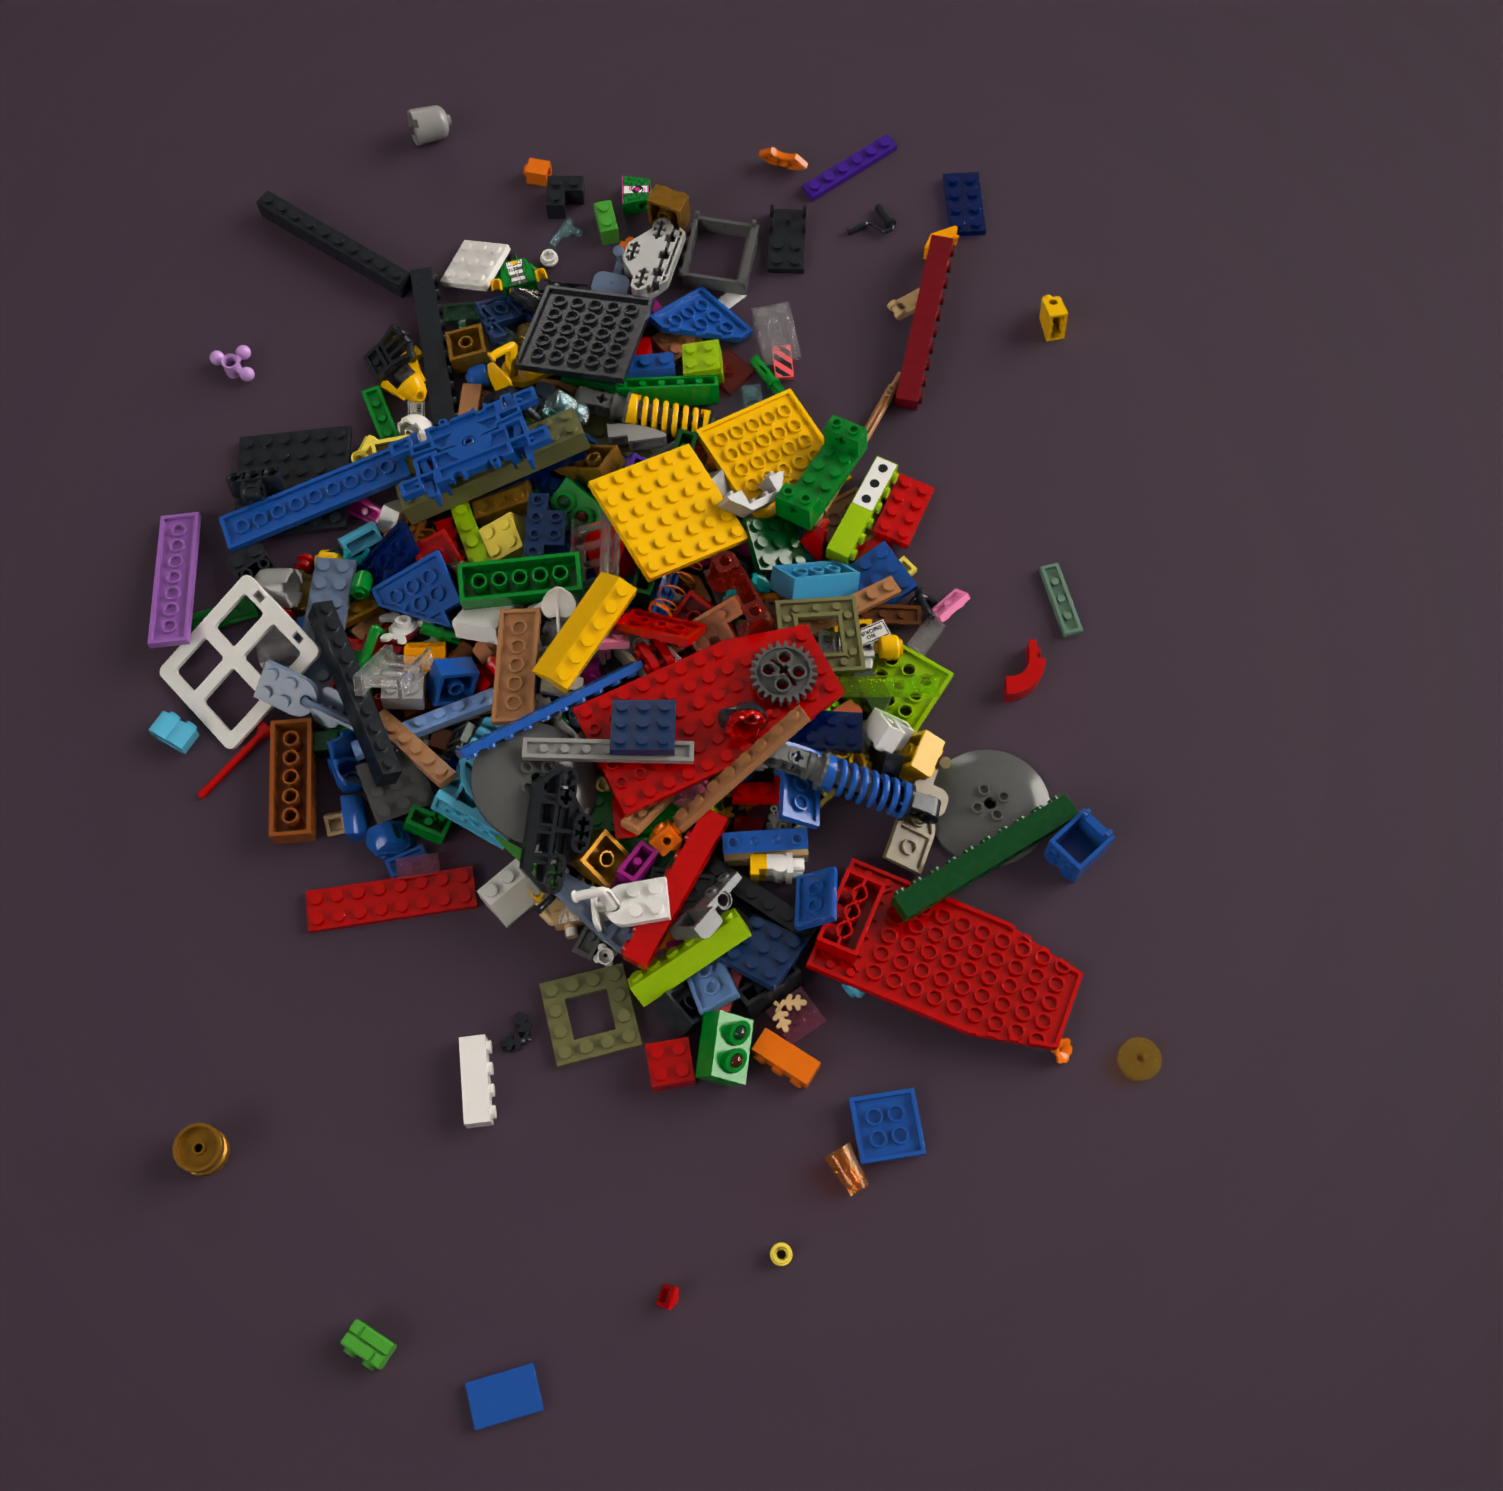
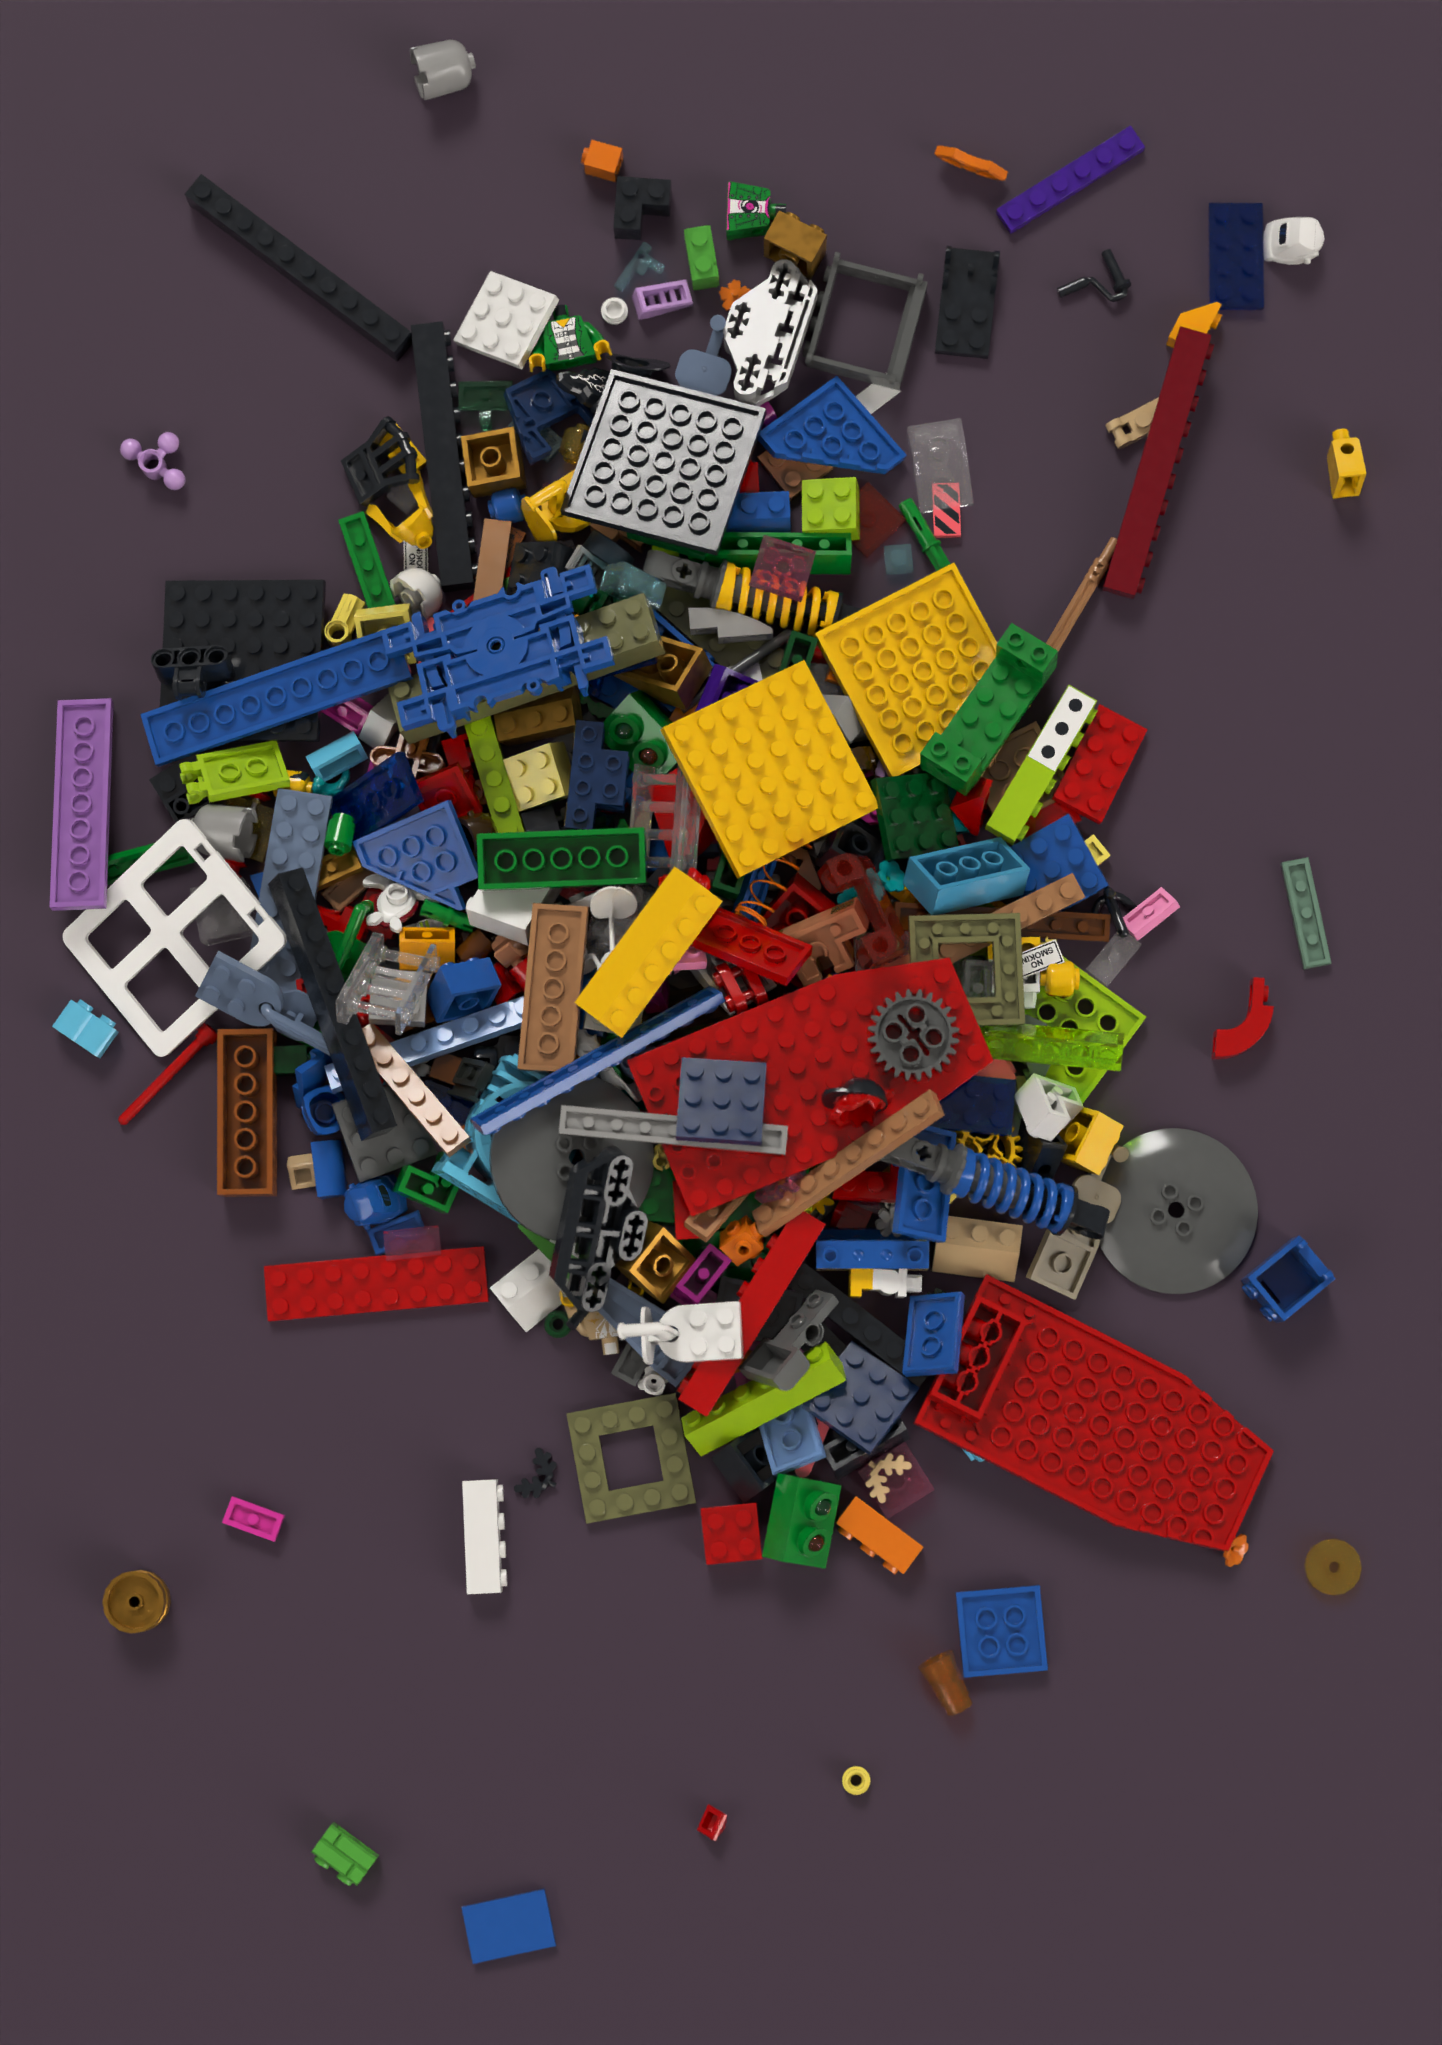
camera: 10 degrees right, 15 degrees up
(285, 549) = (235, 772): none -> lime tile
(296, 1080) = (253, 1518): none -> dark pink plate
(530, 913) = (549, 1320): none -> dark green plate
(571, 255) = (663, 307): none -> lavender slope
(670, 392) = (782, 568): none -> clear pink plate
(740, 506) = (917, 730): light grey slope -> none
(842, 839) = (979, 1249): none -> tan slope
(984, 858) = (1162, 1289): dark green brick -> none
(1001, 190) = (1292, 240): none -> white helmet

